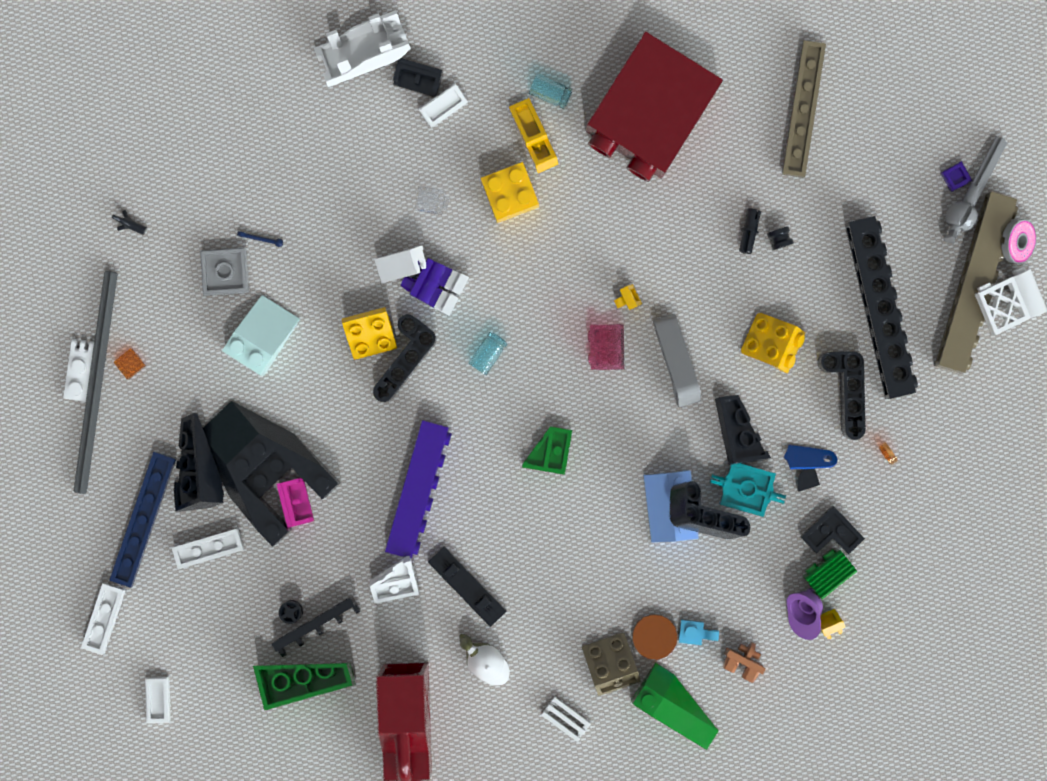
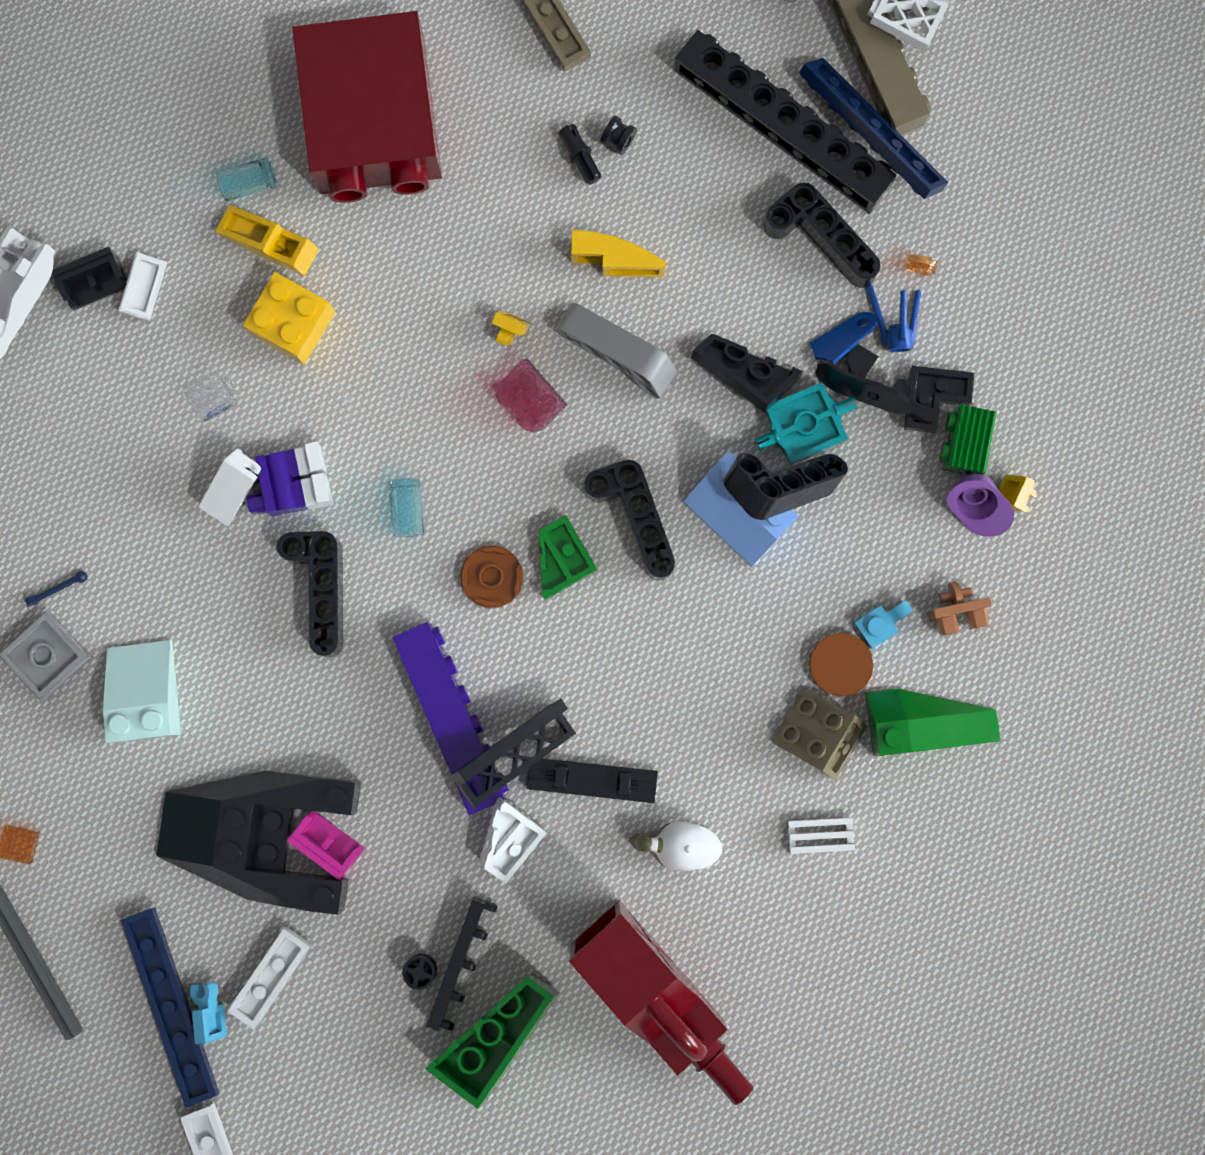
camera: 40 degrees left, 5 degrees down
(159, 543) = (209, 1019): none -> medium azure plate
(199, 478) = (197, 906): black wedge -> none
(369, 333) = (257, 591): yellow plate -> none
(439, 532) = (511, 741): none -> black fence
(503, 429) = (491, 577): none -> dark orange tile
(608, 466) = (637, 521): none -> black beam
(721, 306) = (617, 255): none -> yellow slope
(773, 342) = (702, 247): yellow bracket -> none
(799, 503) = (872, 392): none -> black piece
(841, 483) = (901, 335): none -> blue plant
(926, 354) = (873, 128): none -> dark blue plate

